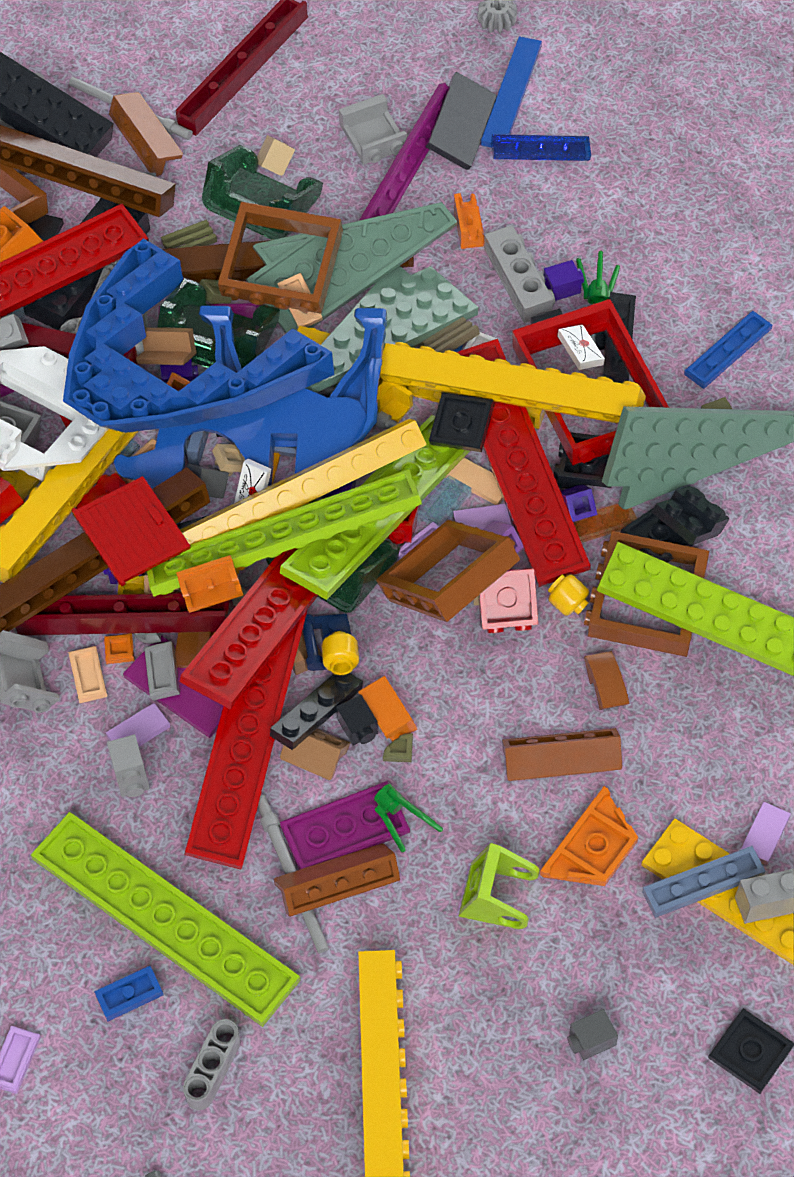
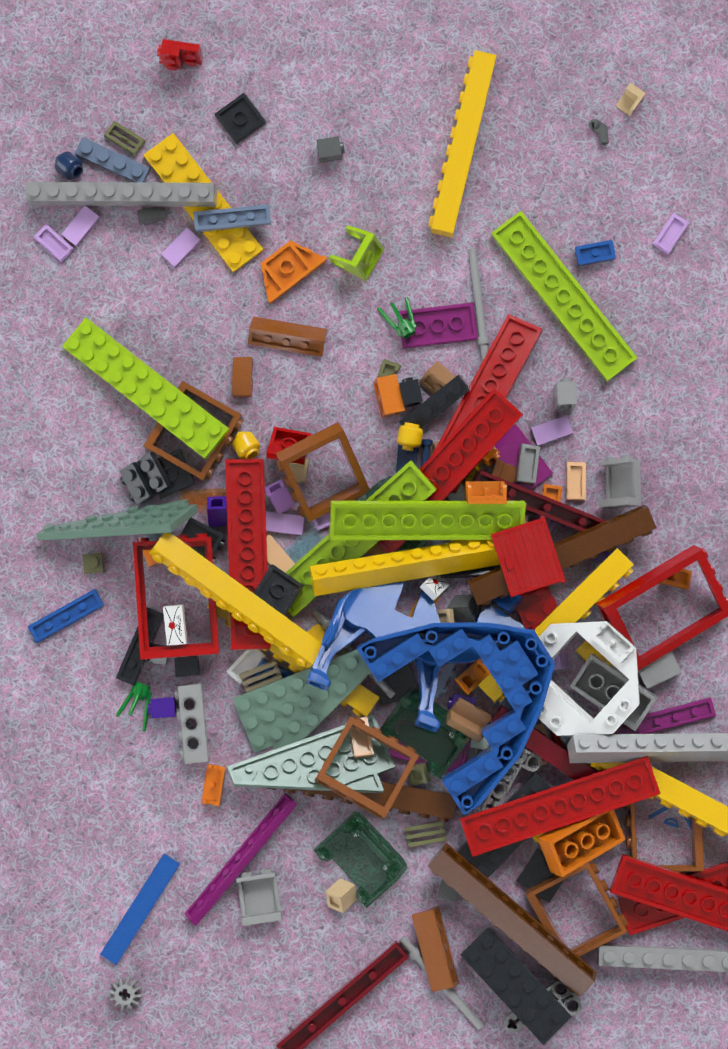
camera: 165 degrees left, 25 degrees up
(211, 1050) = (559, 186): light grey beam -> none
(337, 879) = (452, 289): dark orange panel -> none
(461, 121) = (189, 885): tile -> none
(541, 147) = (137, 841): clear blue tile -> none

